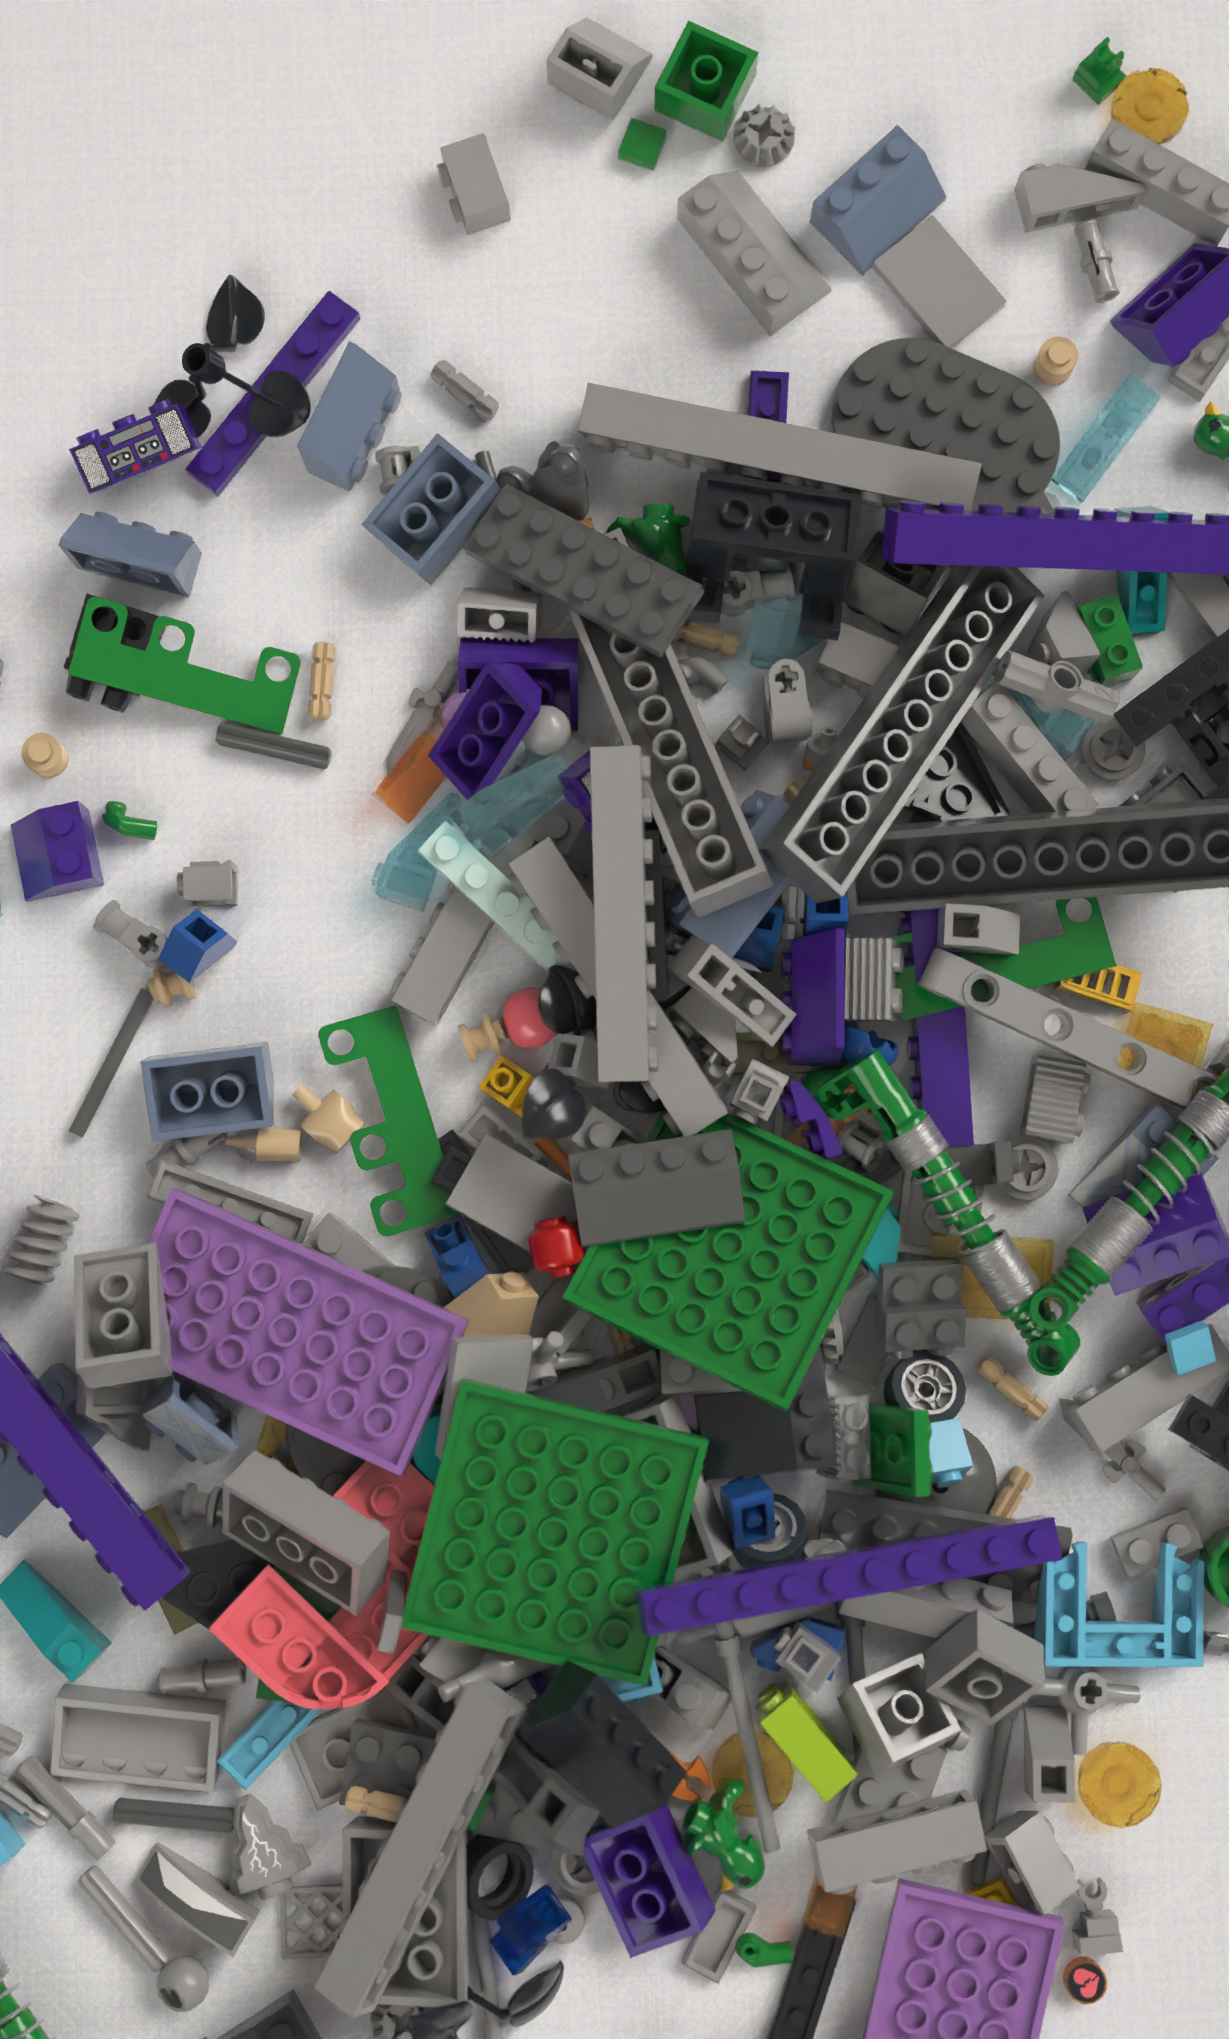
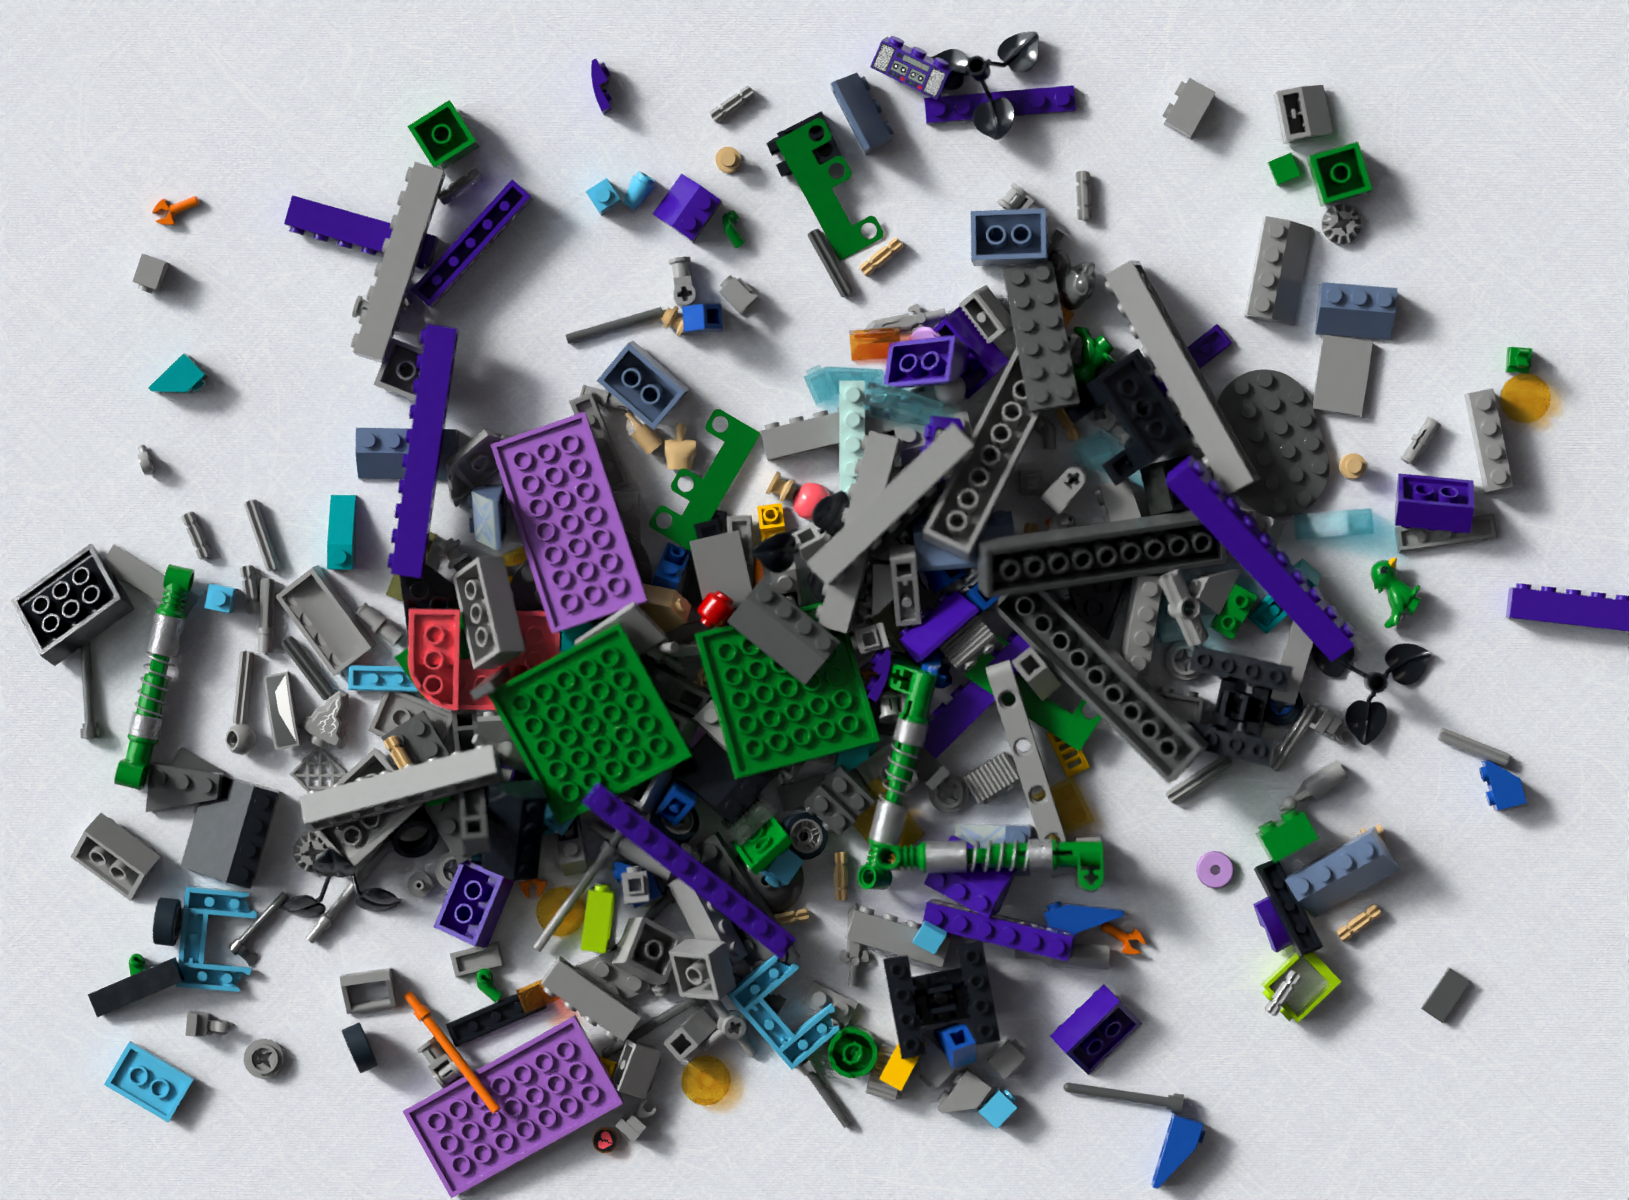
camera: 45 degrees right, 5 degrees up
(42, 1241) = (505, 371): light grey piece -> none
(121, 1317) = (508, 443): light grey slope -> none
(349, 418) = (1018, 157): sand blue slope -> none
(529, 1929) = (404, 871): clear blue slope -> none
(716, 1832) = (522, 916): green animal -> none
(1069, 194) = (1438, 396): light grey slope -> none

